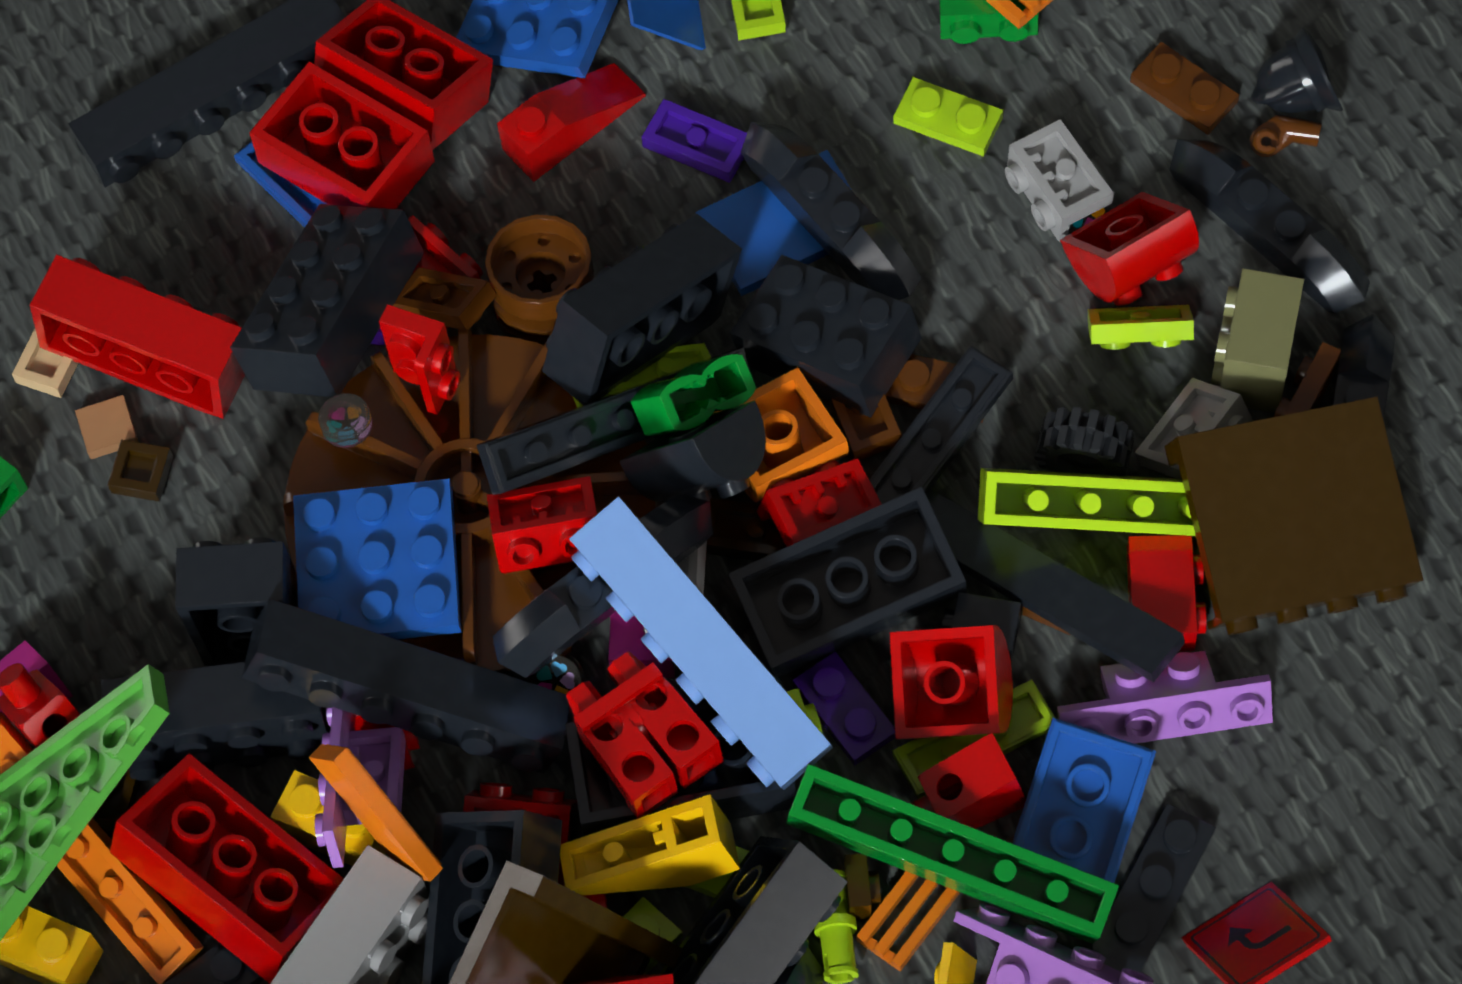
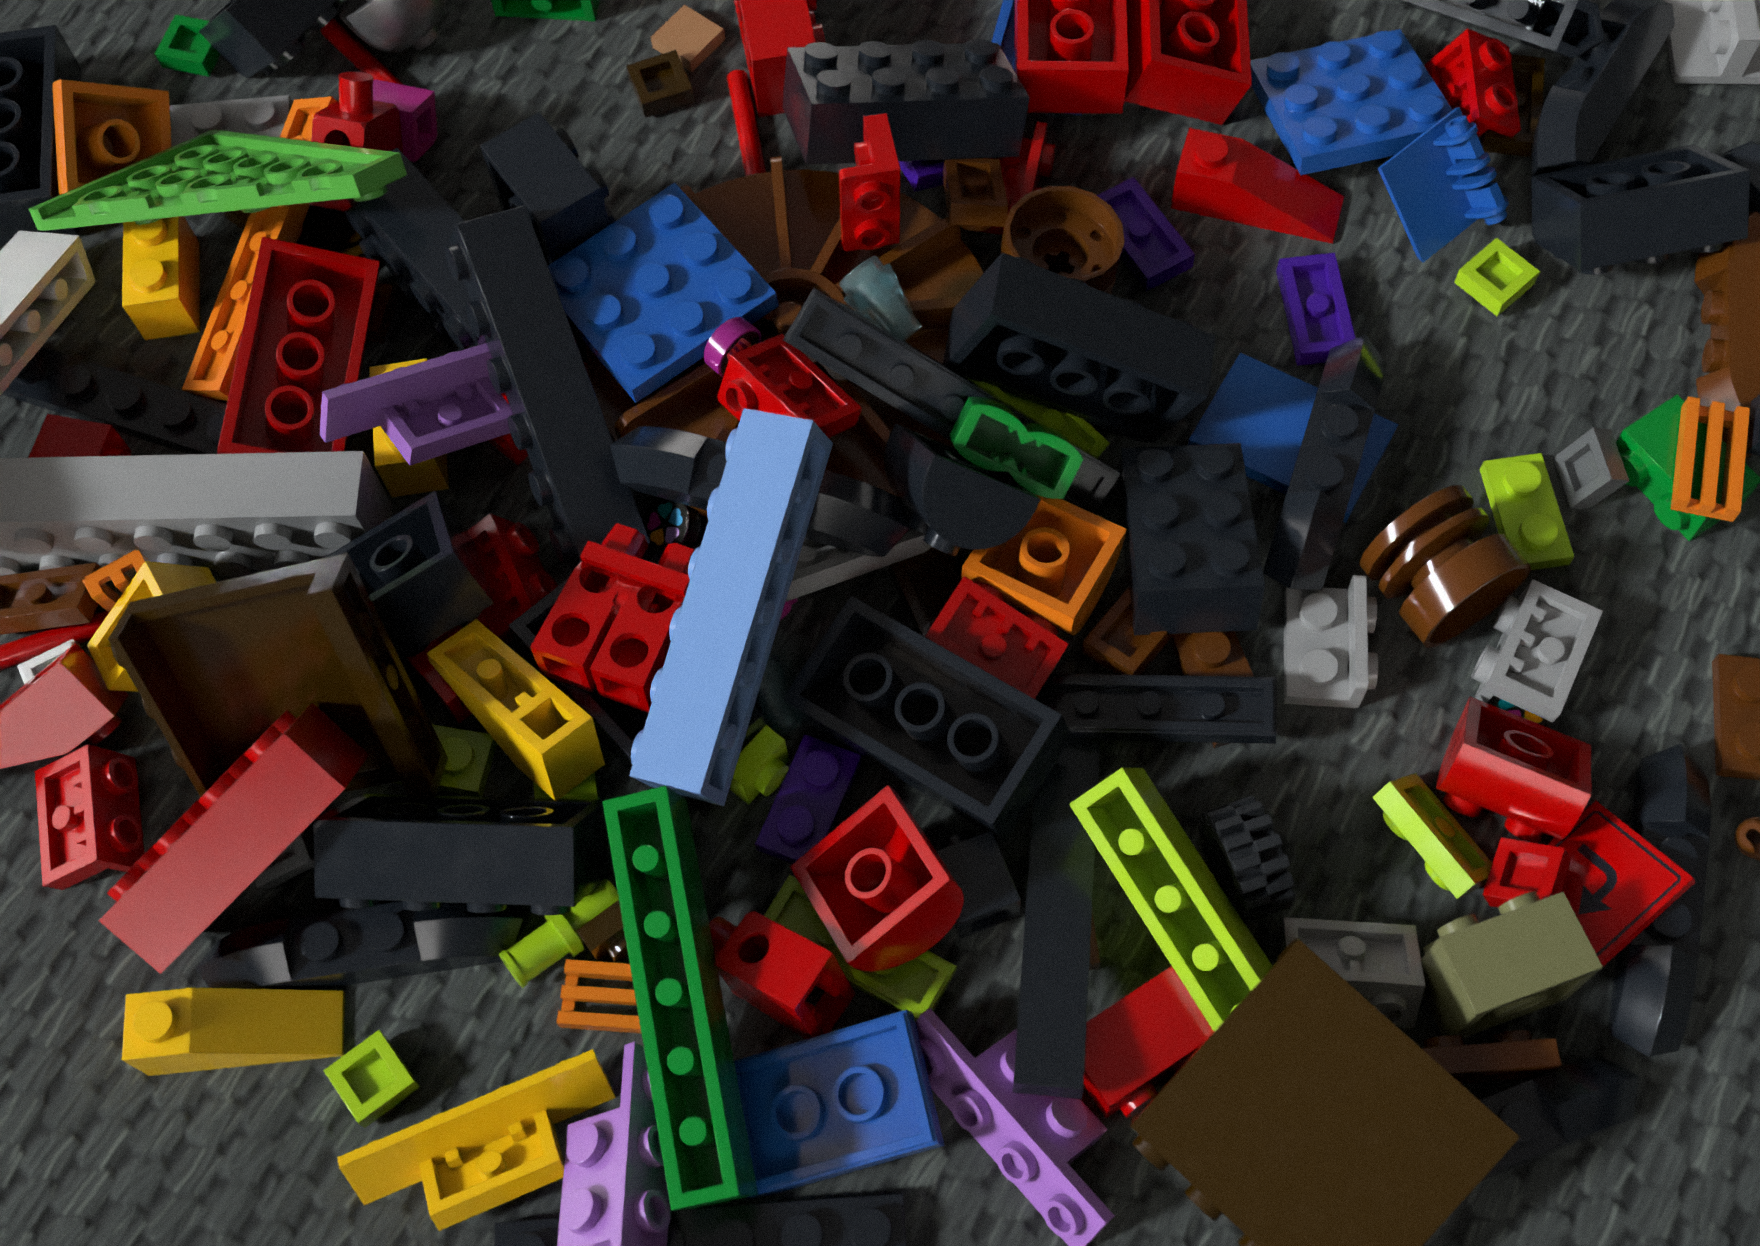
camera: 55 degrees right, 0 degrees up
(233, 433) = (746, 122): none -> red piece
(345, 420) = (784, 181): clear smoke tile -> none
(375, 810) = (381, 429): orange tile -> none
(473, 534) = (728, 339): none -> magenta tile
(504, 411) = (877, 295): none -> clear light blue cone
(572, 205) = (1151, 245): none -> dark purple plate
(948, 55) = (1590, 468): none -> dark grey plate
(962, 190) = (1440, 561): none -> reddish brown wheel
(962, 300) = (1329, 645): none -> light grey bracket
(1204, 288) = (1525, 868): none -> red plate
(1237, 237) = (1616, 880): none -> red piece

